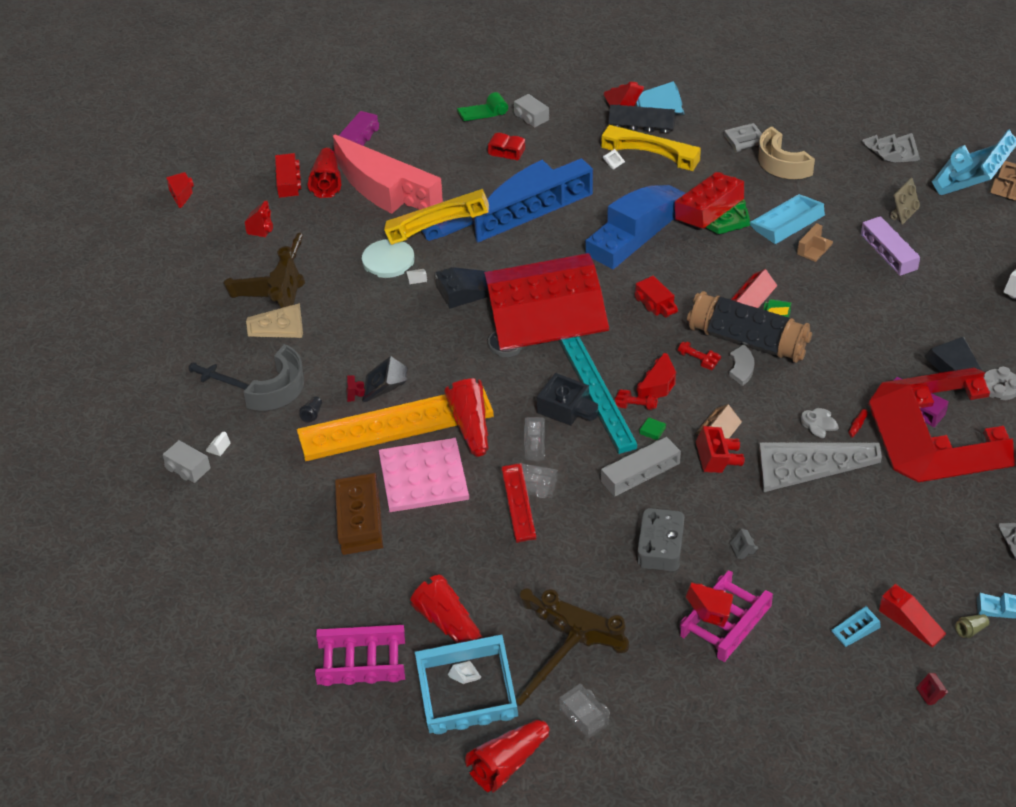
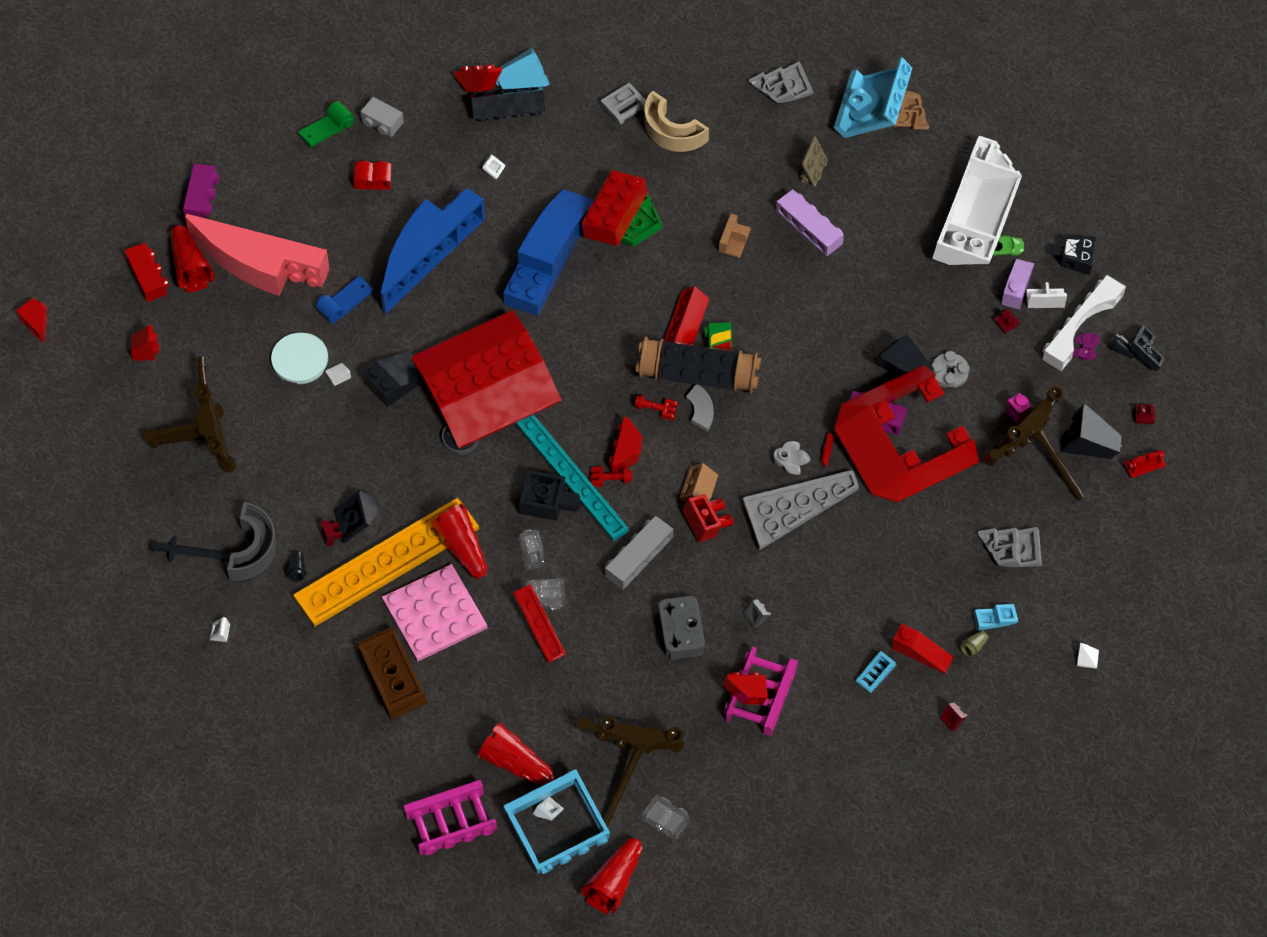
camera: 20 degrees left, 15 degrees up
(186, 461) = (199, 659): light grey brick -> none
(276, 323) = (223, 473): tan wing -> none
(467, 205) = (306, 319): yellow arch -> none
(652, 428) = (636, 504): green tile -> none
(655, 297) = (594, 345): red brick -> none
(683, 154) = (492, 136): yellow arch -> none
(788, 218) = (698, 207): medium azure slope -> none

